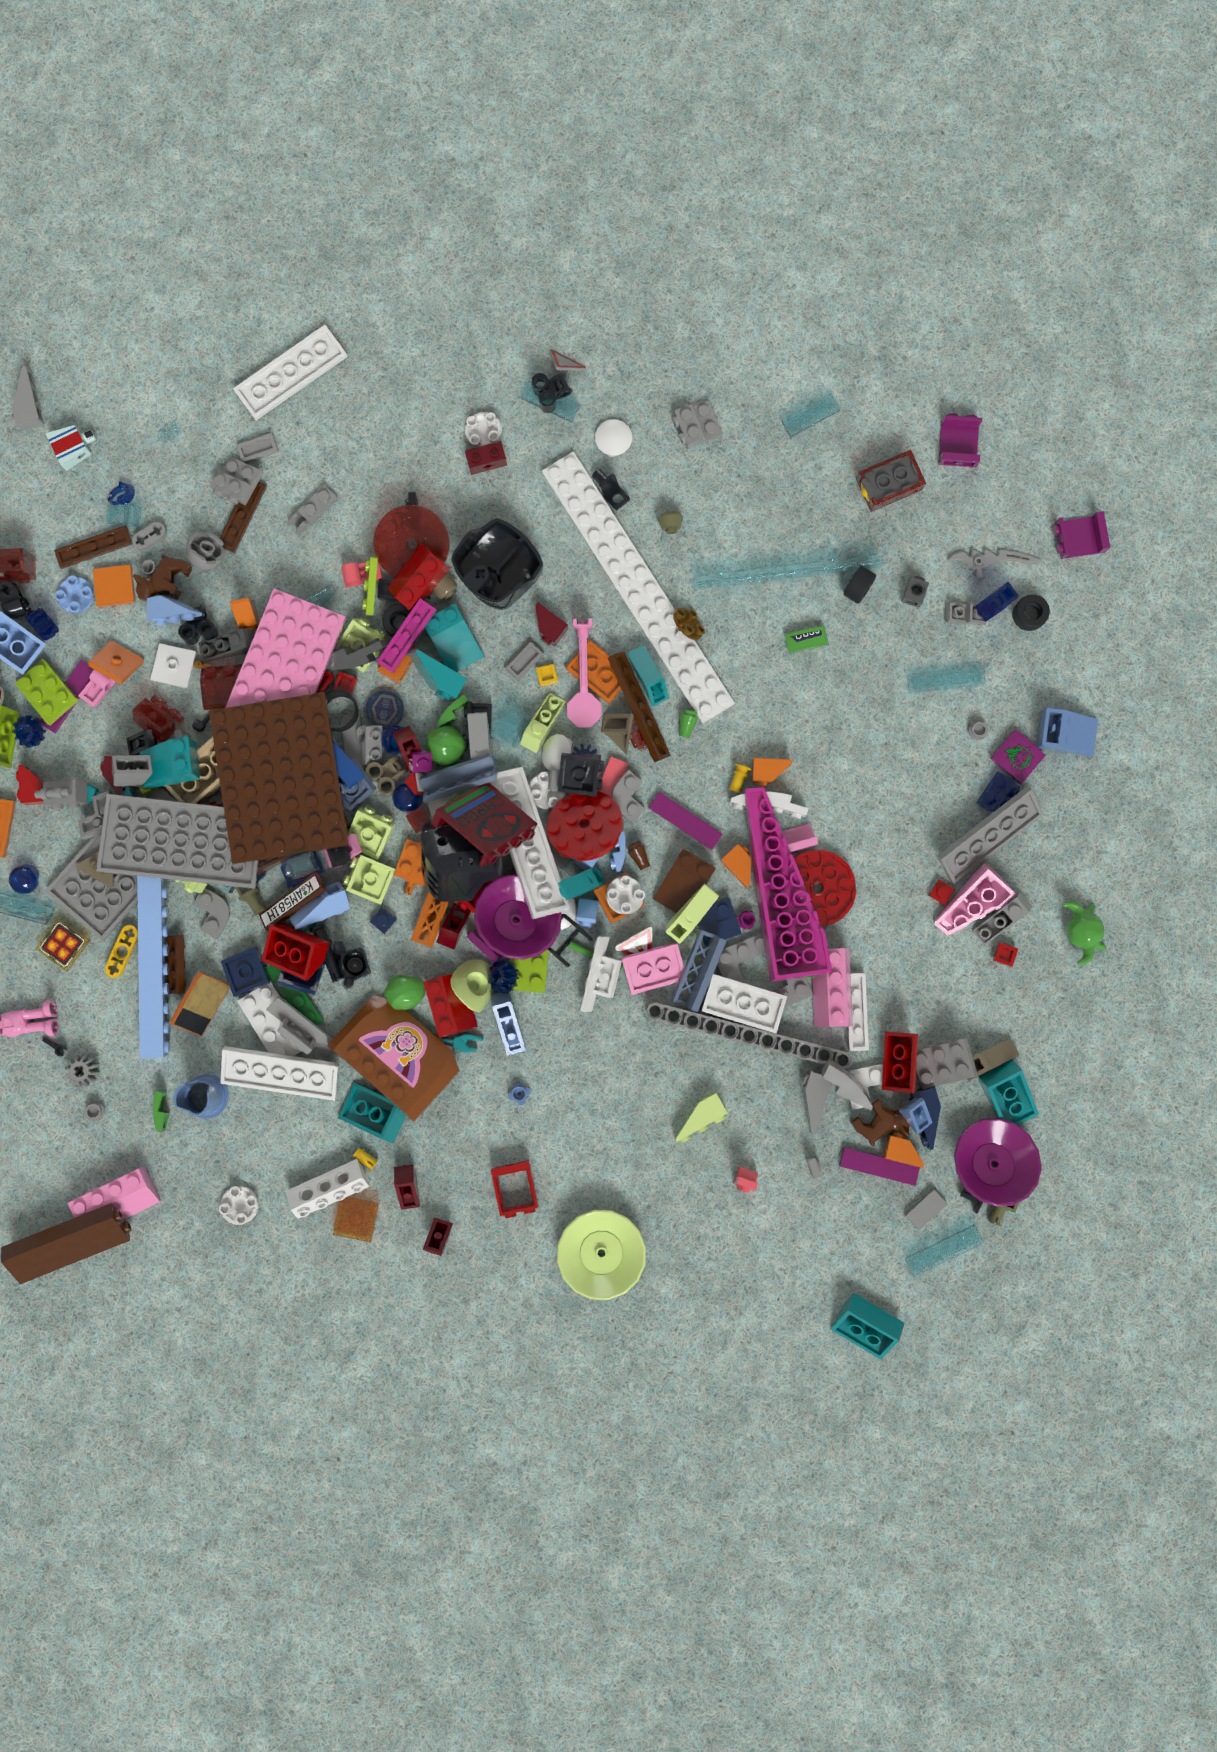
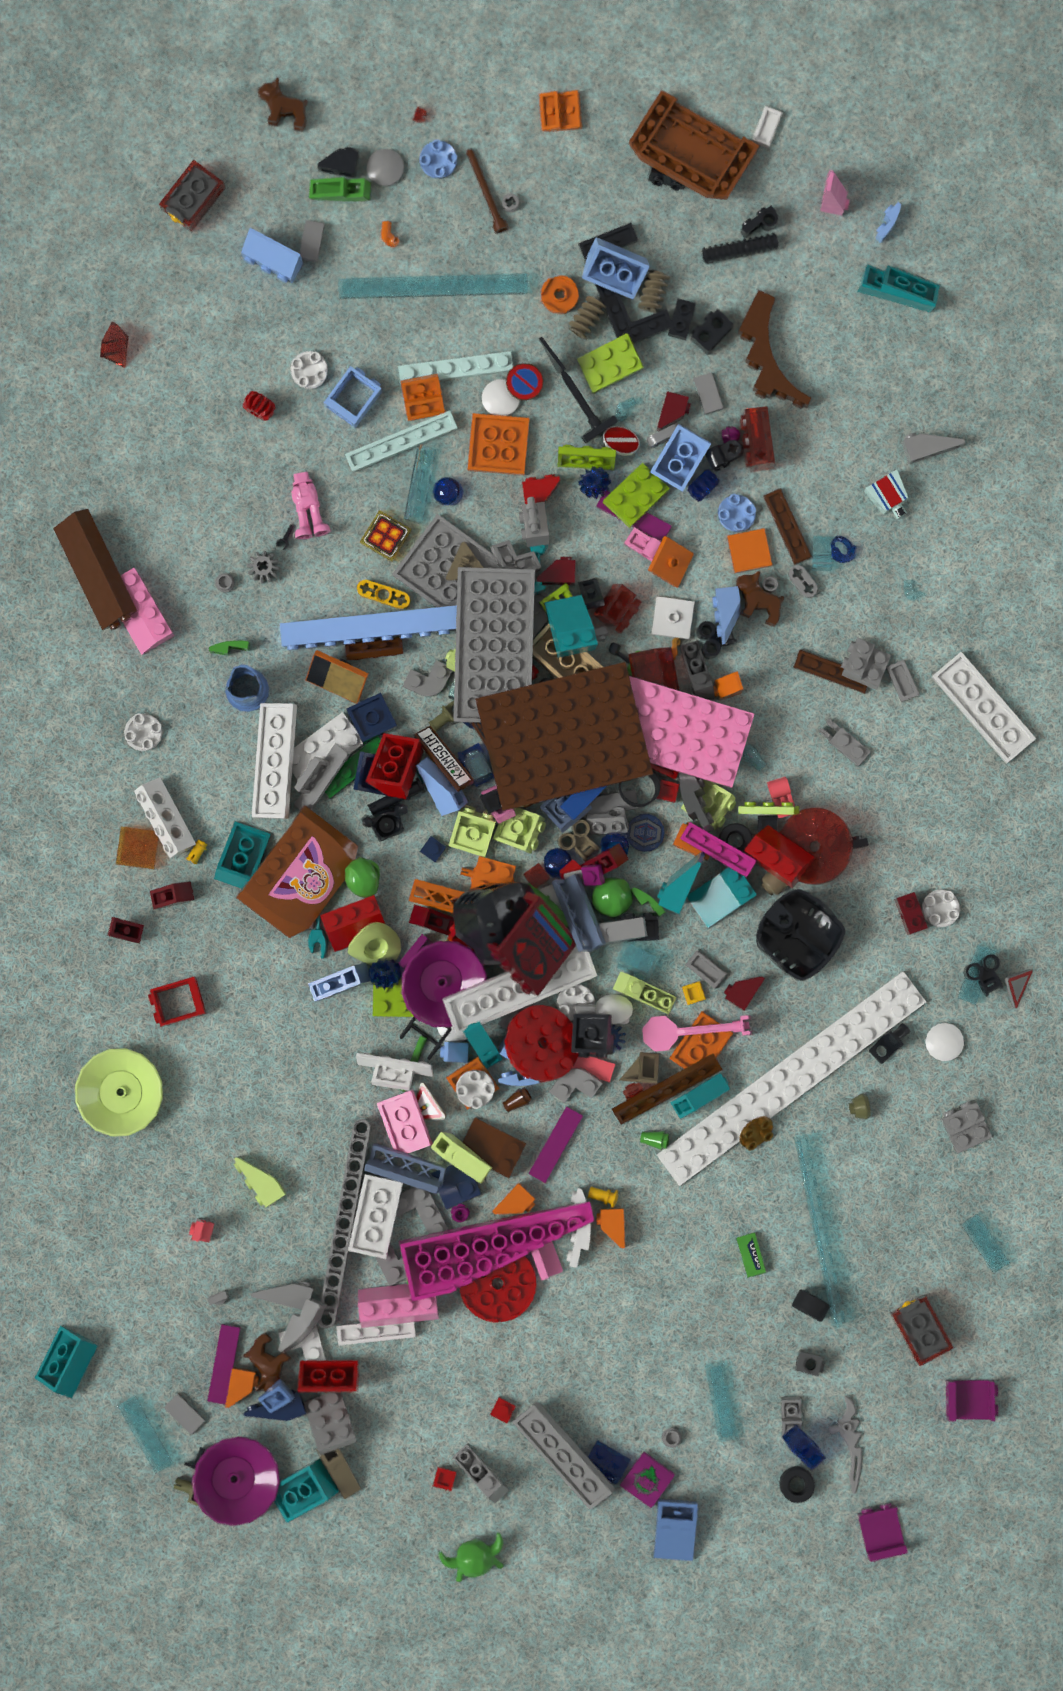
camera: 90 degrees right, 0 degrees up
(131, 770) = (558, 588): light grey torso -> none
(205, 551) = (790, 640): light grey cylinder -> none
(514, 1094) = (269, 993): medium blue plate -> none
(979, 896) = (499, 1446): bright pink wedge -> none

